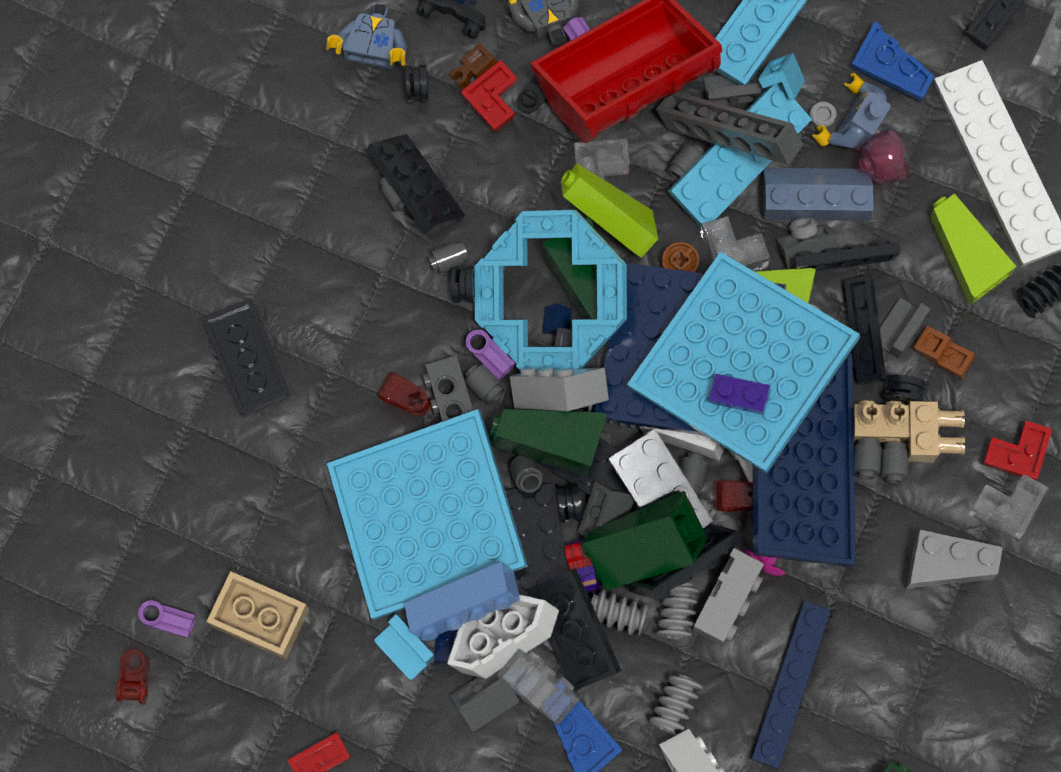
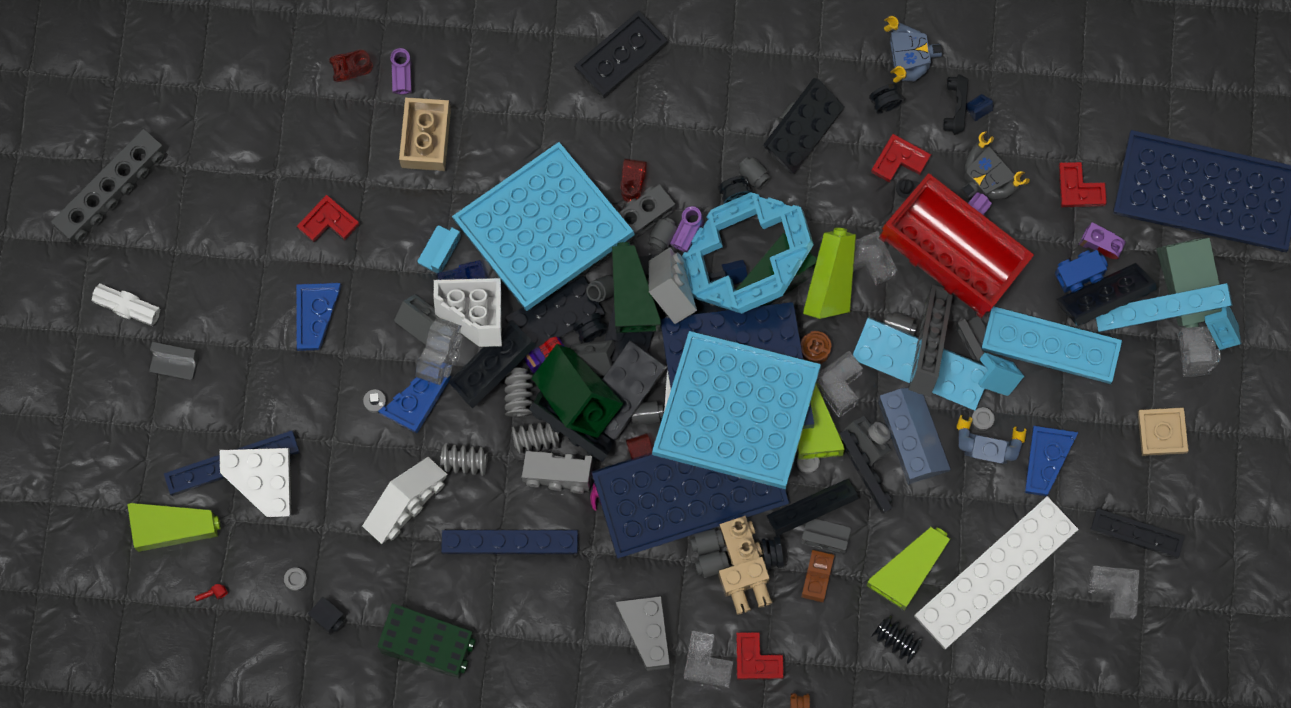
camera: 70 degrees right, 0 degrees up
(462, 601) = (482, 272): medium blue brick -> none
(475, 63) = (922, 137): reddish brown plate -> none
(739, 394) = (706, 413): dark purple plate -> none
(883, 158) = (957, 473): clear pink cylinder -> none

